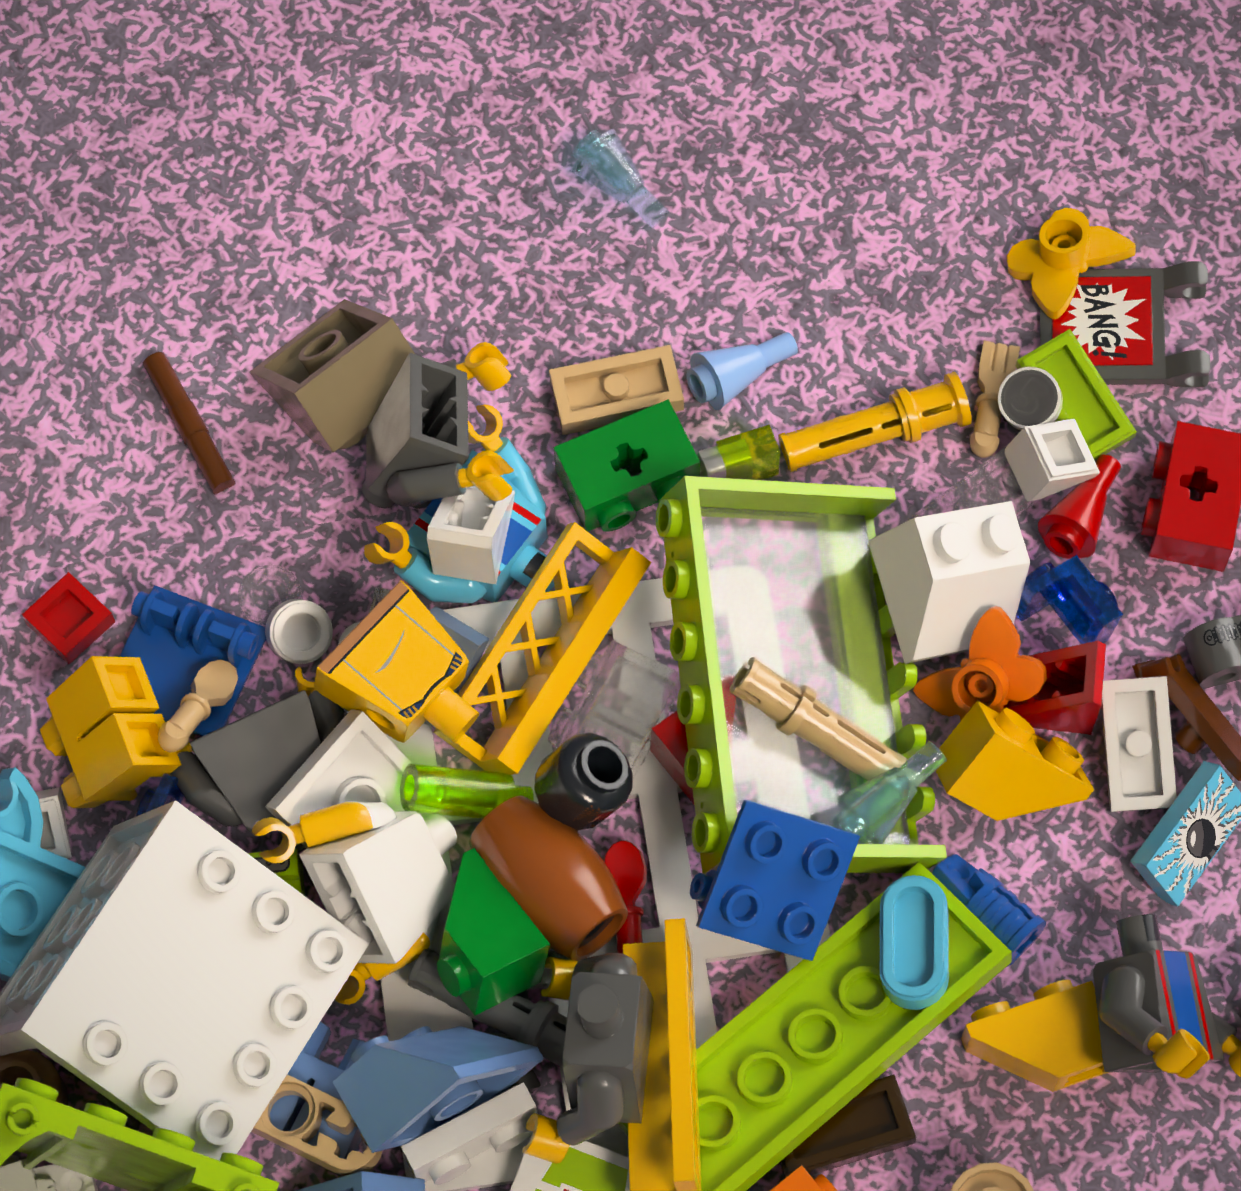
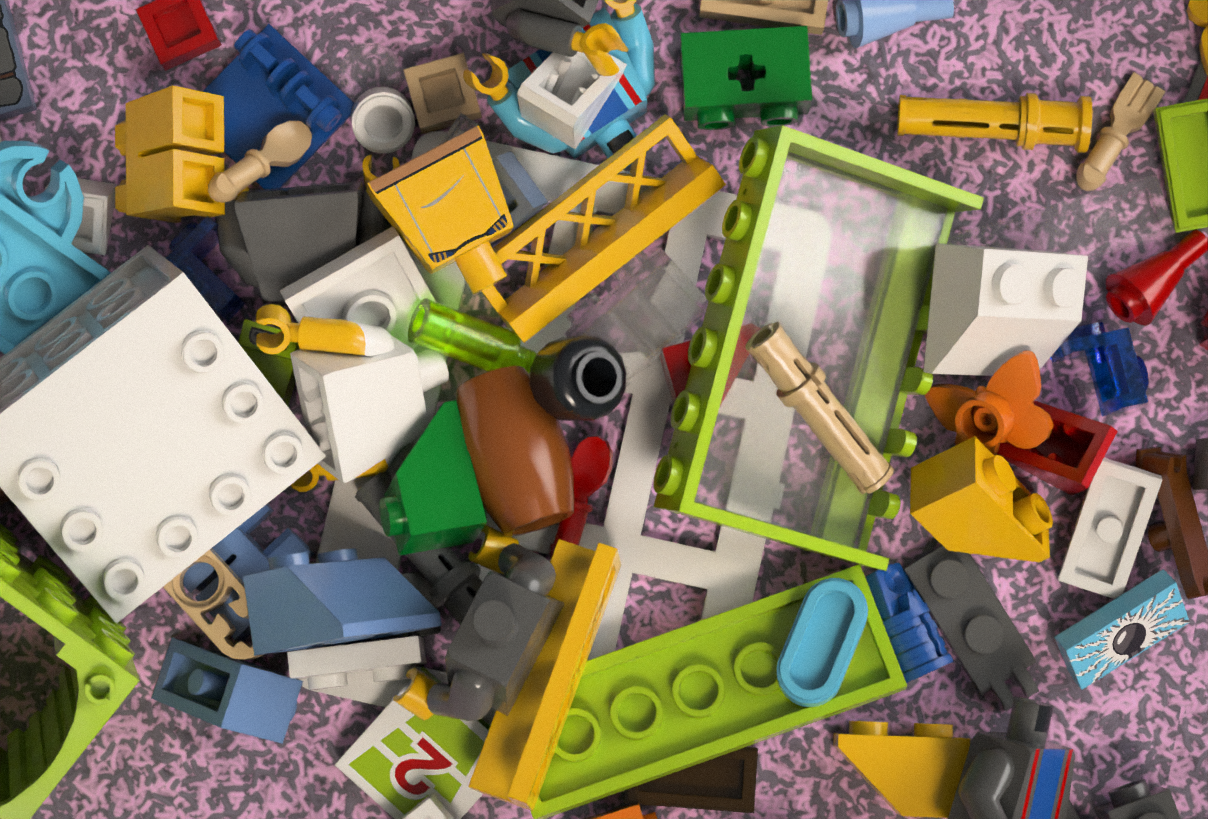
camera: 25 degrees right, 15 degrees up
(345, 585) = (441, 93): none -> tan plate
(742, 456) = (852, 108): clear neon green piece -> none
(775, 880) = (714, 543): blue hinge -> none
(880, 802) = (843, 500): clear light blue cone -> none
(1029, 397) = (1151, 153): tile -> none
(1049, 882) = (973, 623): none -> dark grey hinge
(1050, 458) = (1146, 218): white slope -> none

